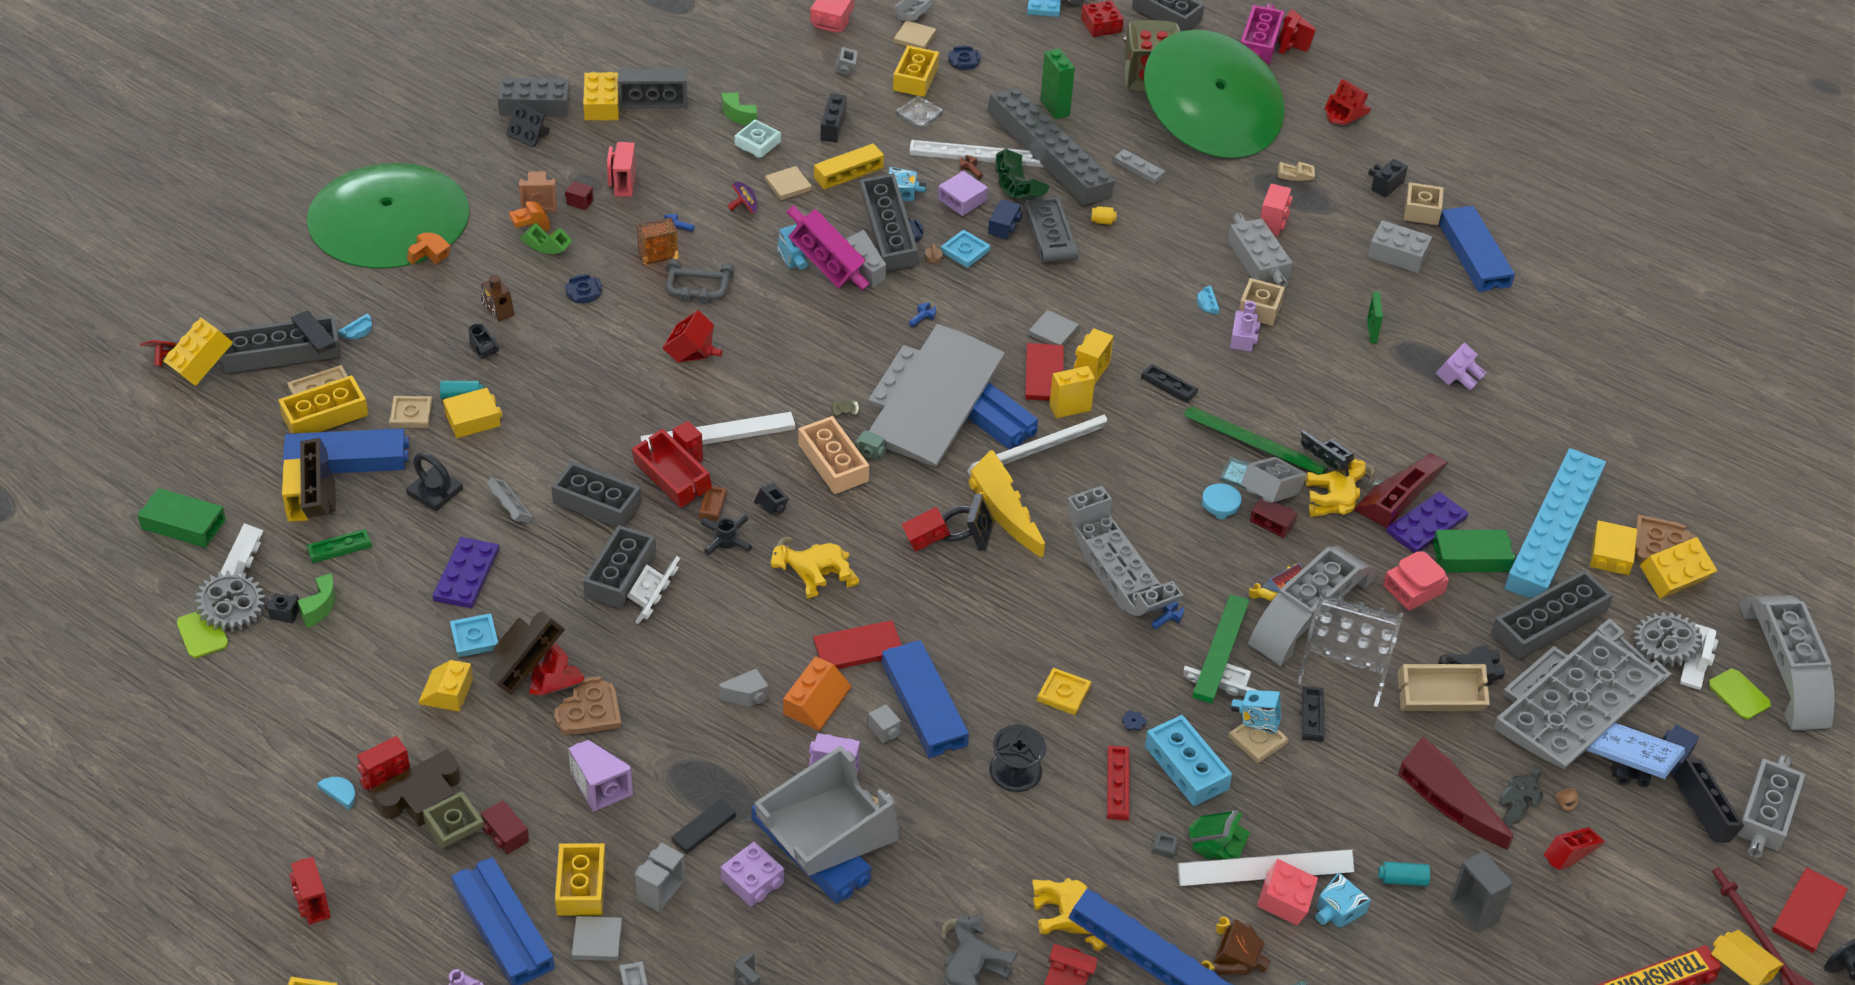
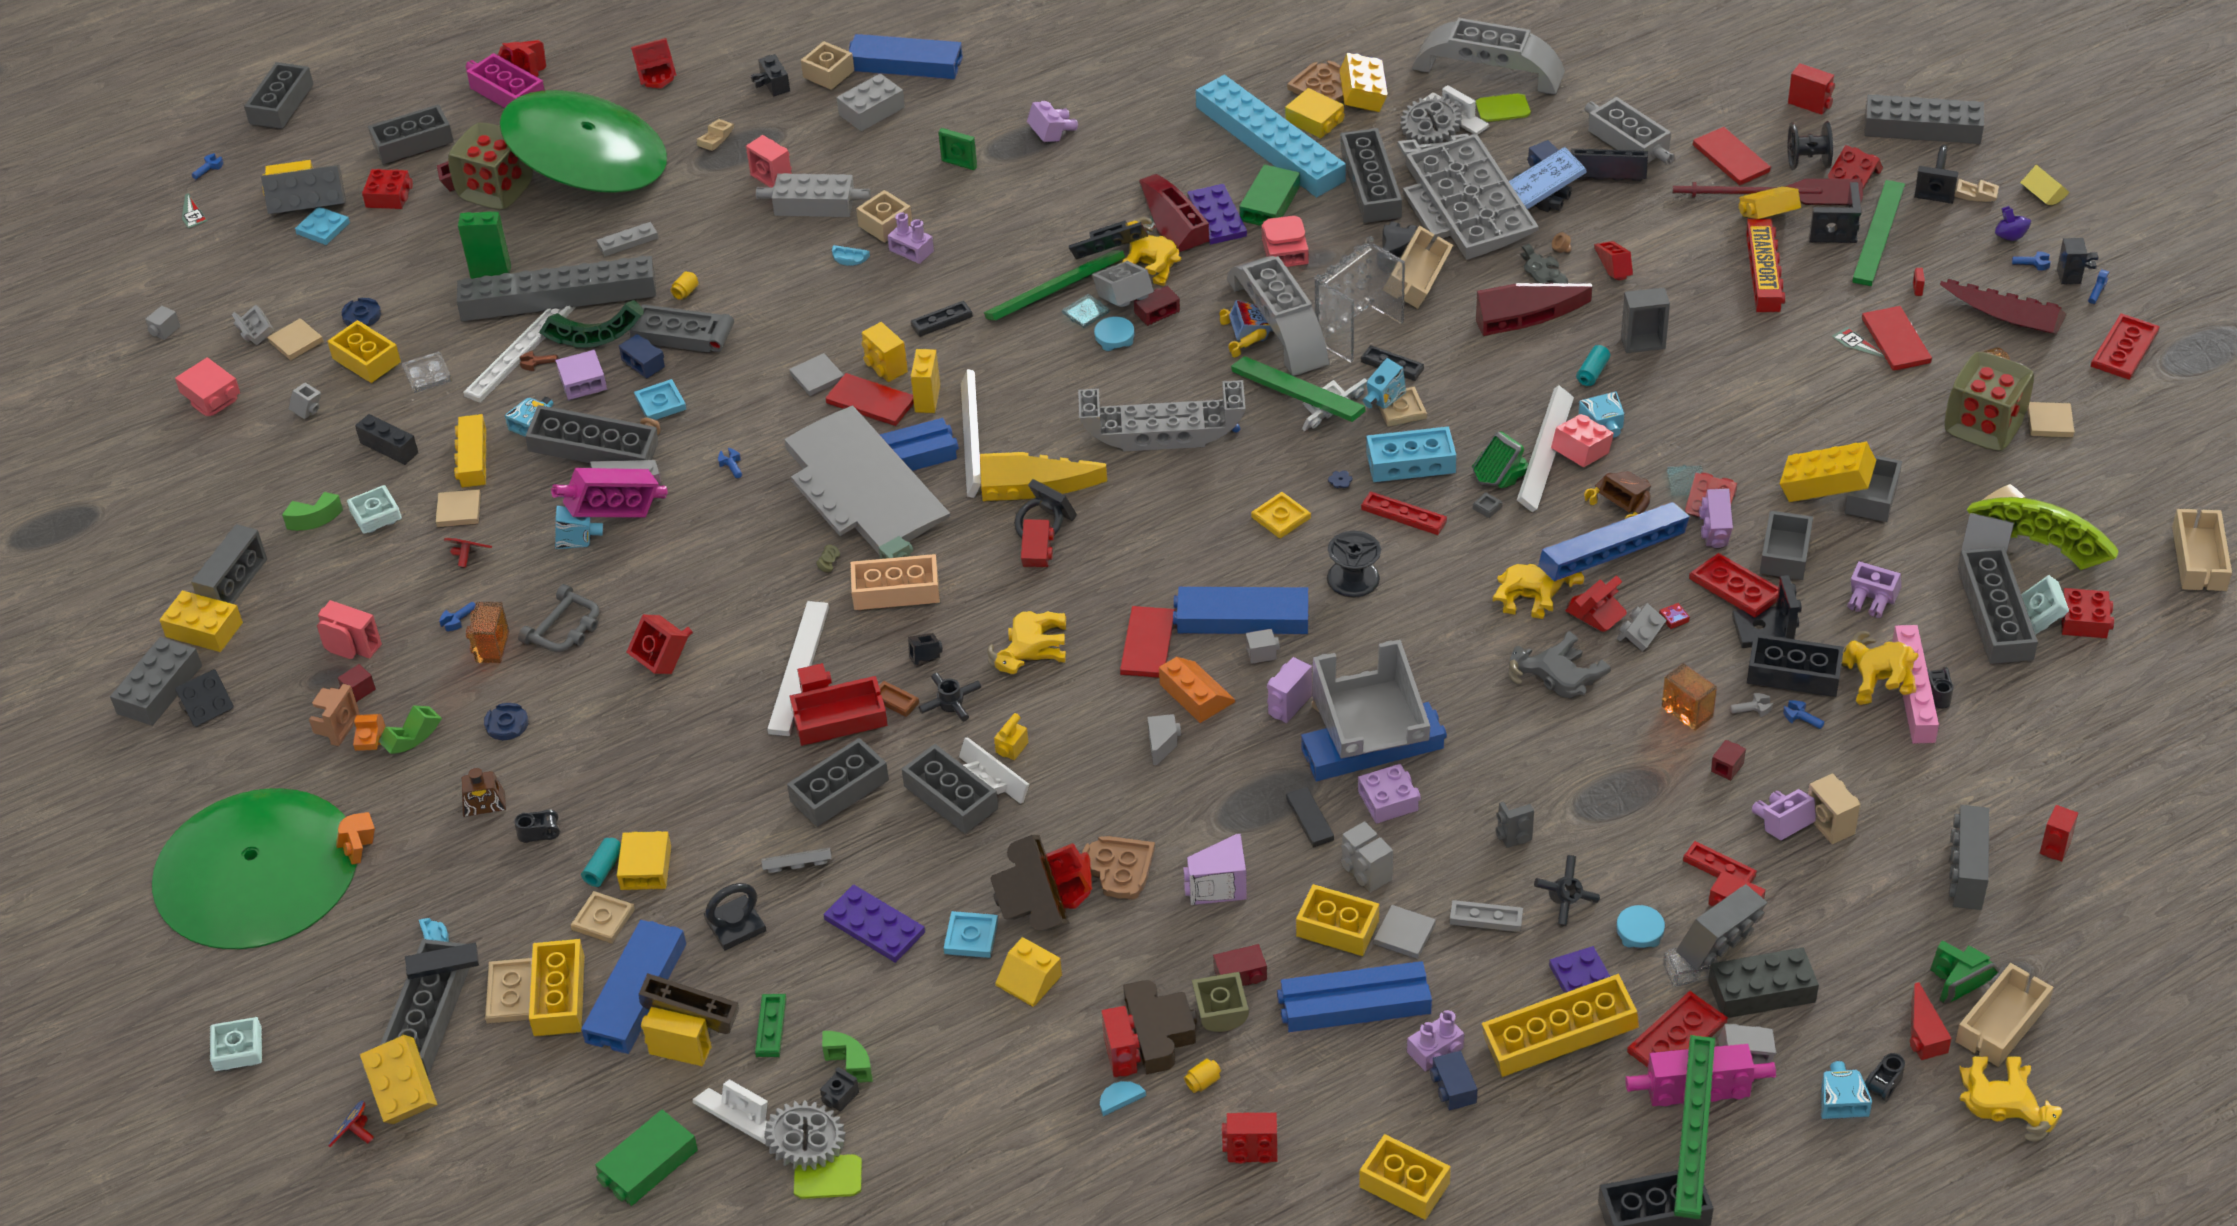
camera: 60 degrees left, 0 degrees up
(215, 263) = (235, 1044): none -> light aqua brick
(376, 839) = (1202, 1075): none -> yellow brick
(695, 588) = (1011, 738): none -> yellow brick

